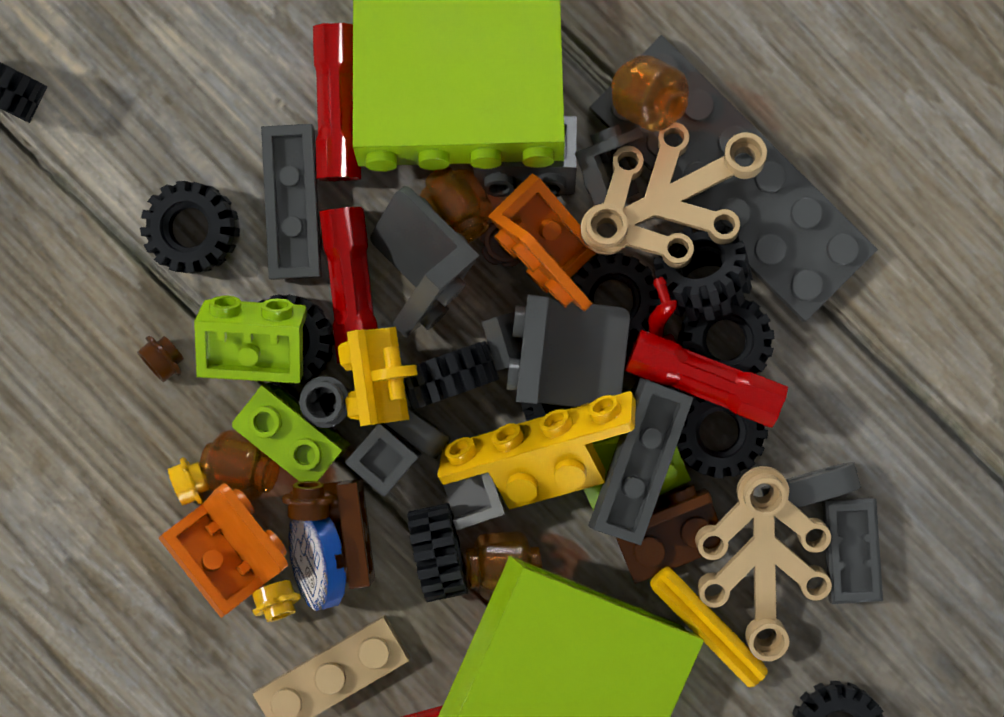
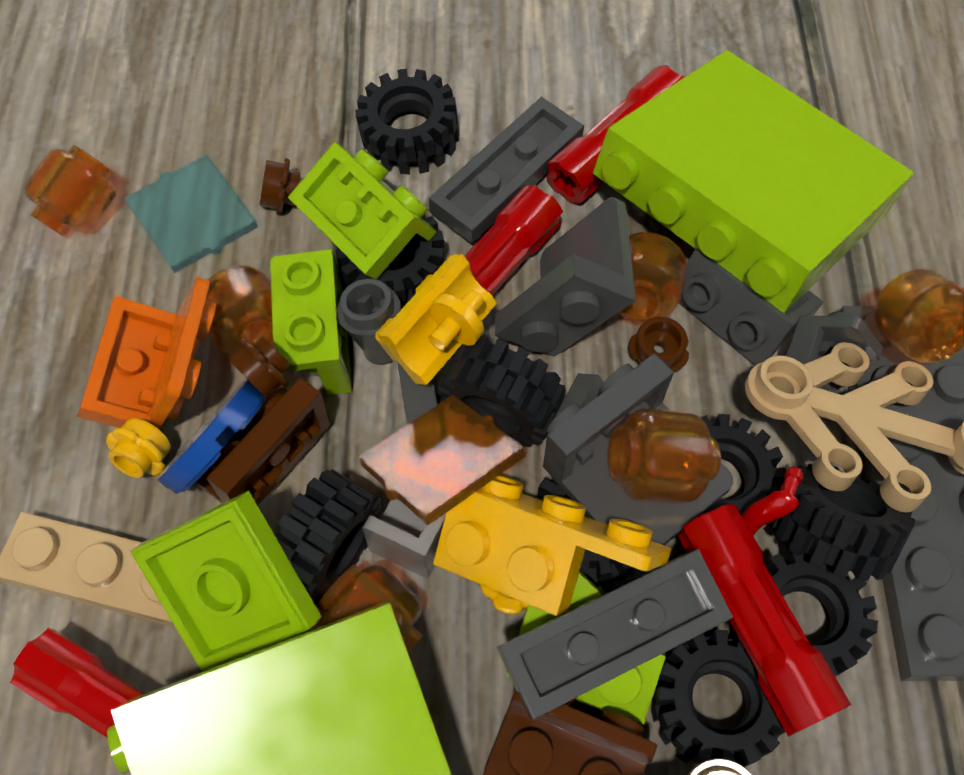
camera: 40 degrees right, 25 degrees down
(40, 492) = (70, 190): none -> clear orange head
(121, 426) = (190, 213): none -> clear light blue piece
(188, 482) = (179, 283): yellow plate -> none
(383, 458) = (364, 405): dark grey brick -> none
(417, 627) = (226, 583): none -> lime plate
(461, 455) = (441, 458): none -> clear orange piece
(544, 239) = (708, 352): orange bracket -> none
(583, 344) = (663, 456): none -> clear orange head

